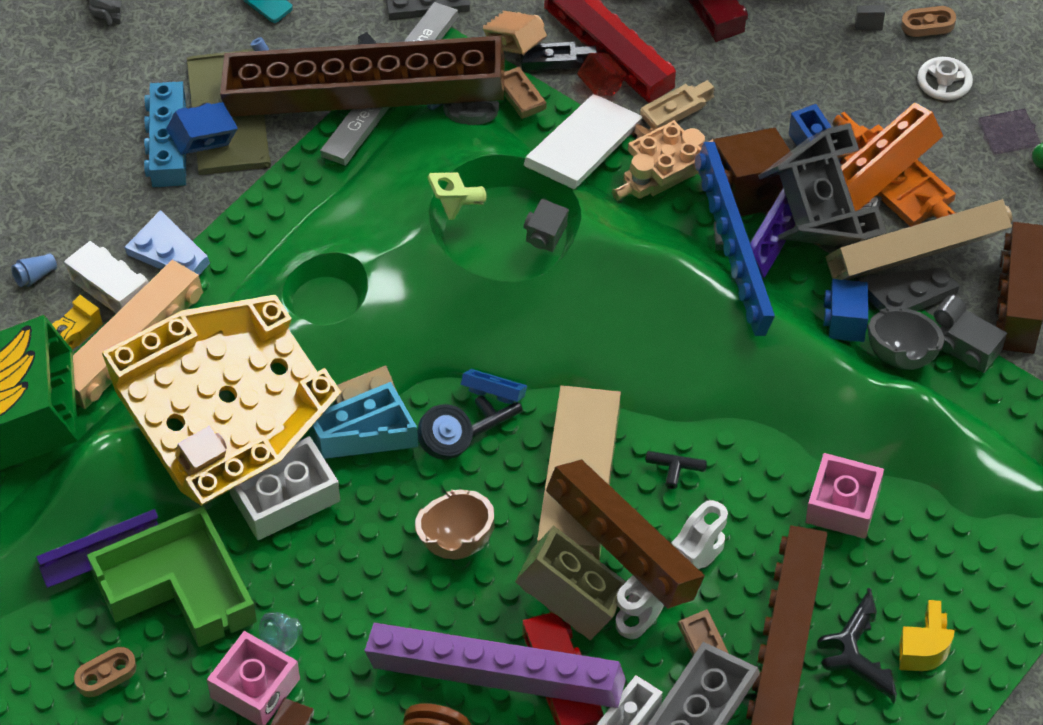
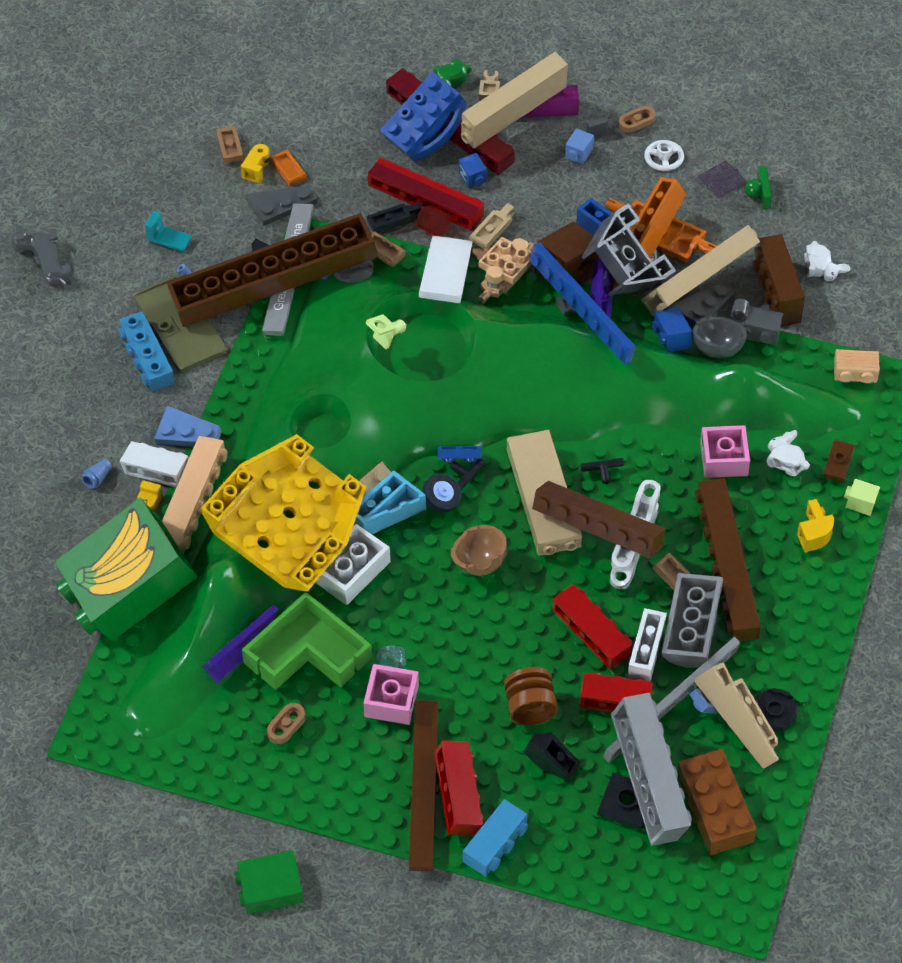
camera: 20 degrees left, 0 degrees up
(200, 450) = (292, 555): brick -> none
(201, 128) = (173, 339): blue brick -> none
(496, 665) = (549, 631): medium lavender brick -> none
(517, 30) = (368, 204): light nougat brick -> none
(546, 225) = (454, 332): dark grey brick -> none
(571, 583) = (576, 563): olive brick -> none
(683, 26) = (472, 170): none -> blue brick
(835, 34) = (579, 146): none -> medium blue brick
(851, 658) = (771, 553): black piece -> none
(929, 528) = (787, 456): none -> white animal
(1000, 558) = (838, 461): none -> reddish brown plate
(1009, 618) = (861, 496): none -> yellowish green brick

